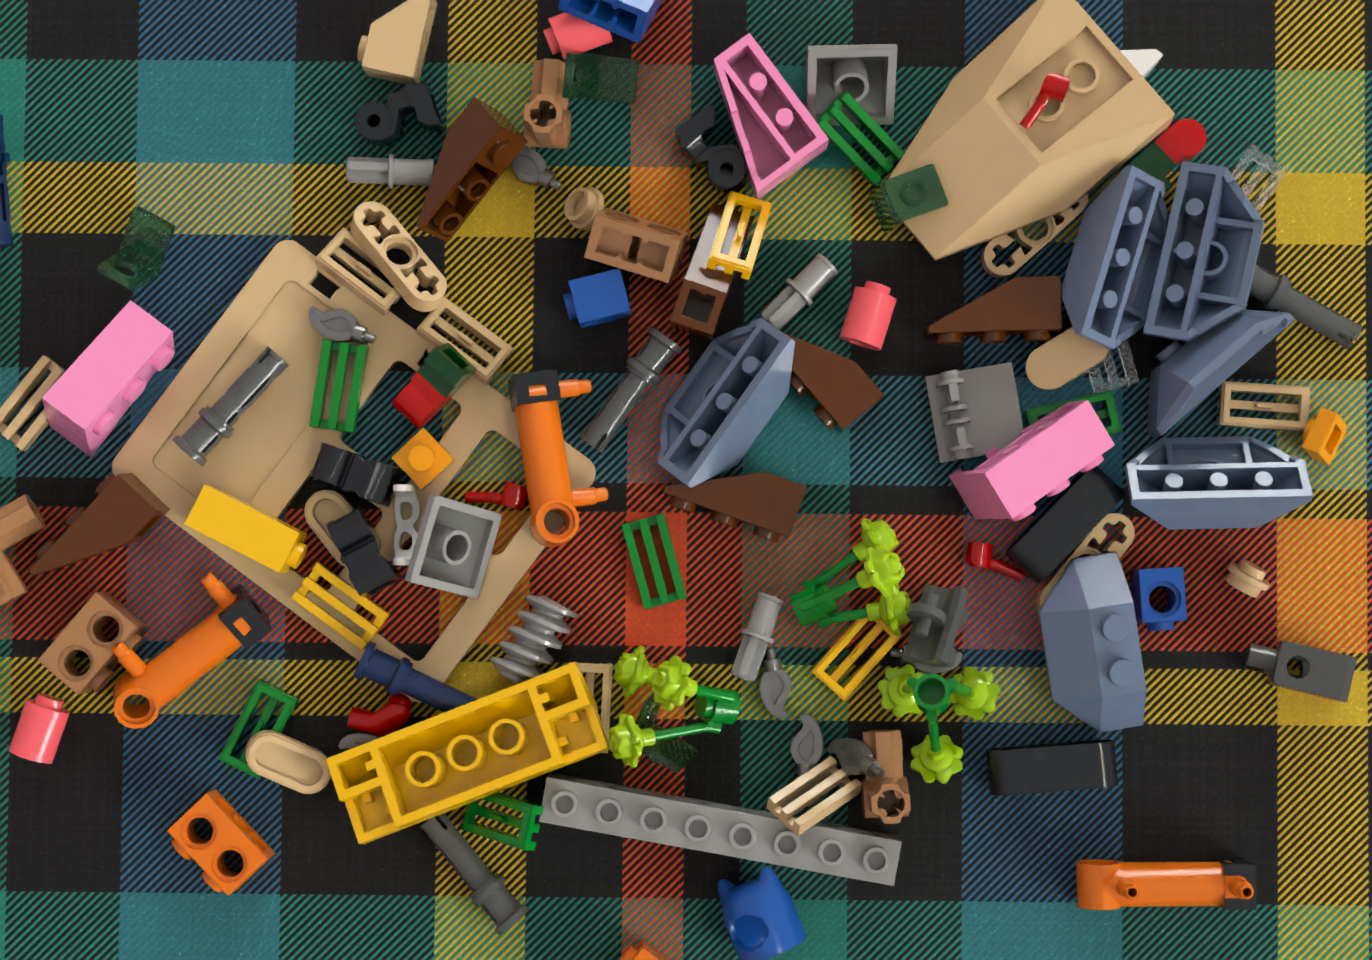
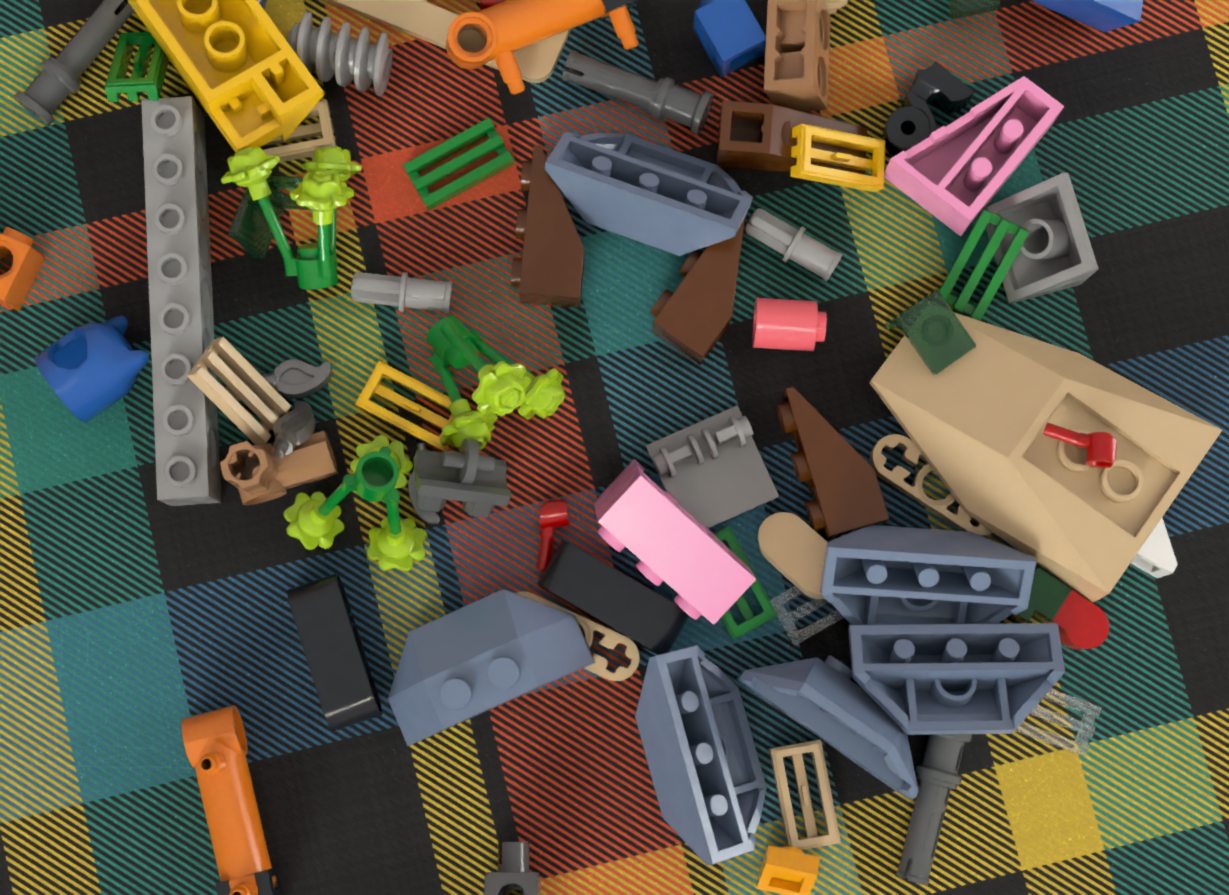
camera: 70 degrees right, 5 degrees down
(774, 685) = (353, 327): flat silver piece -> none
(1169, 579) = (579, 729): blue brick -> none
(1247, 578) = (602, 822): tan plate -> none

